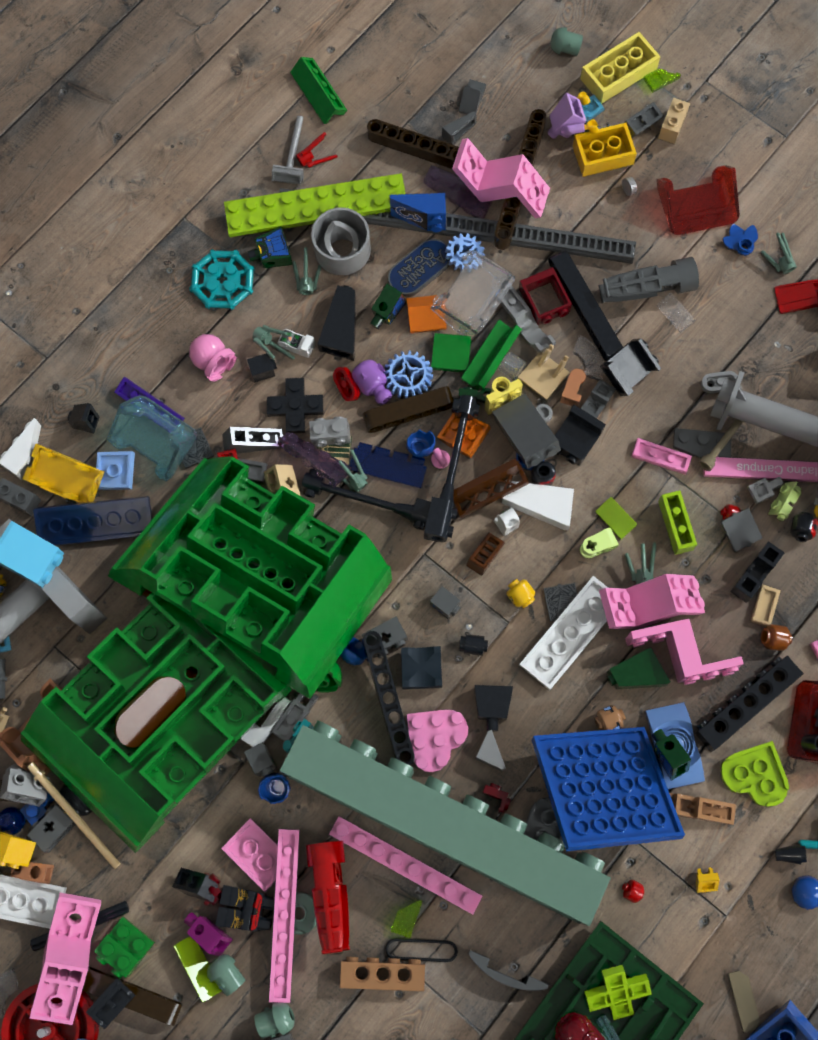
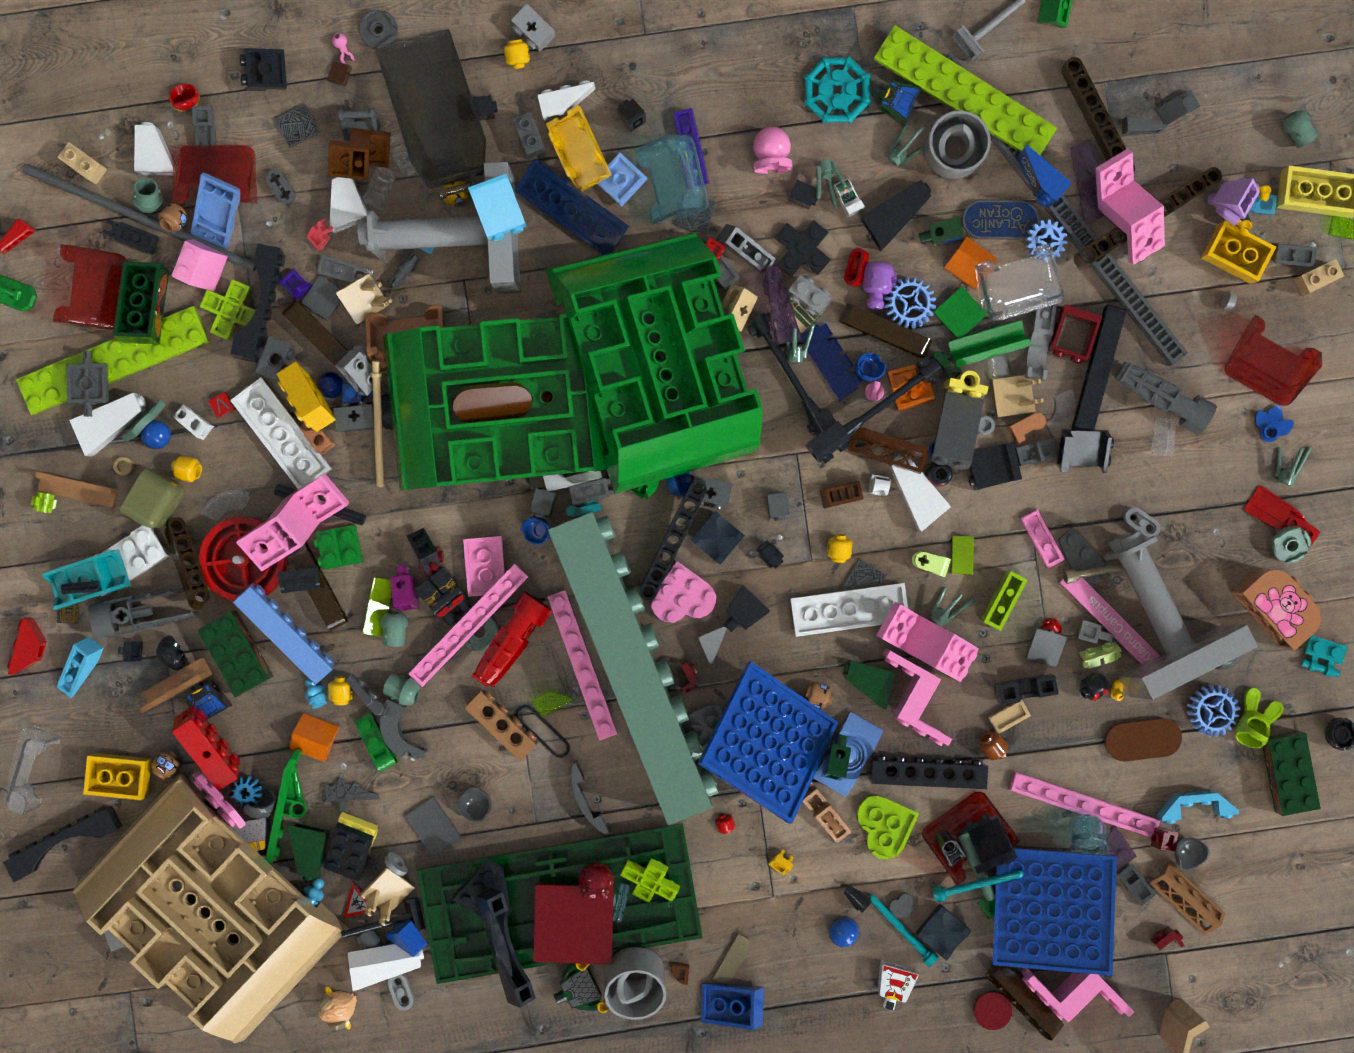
camera: 35 degrees right, 15 degrees up
(305, 157) = (996, 40): red plant -> none

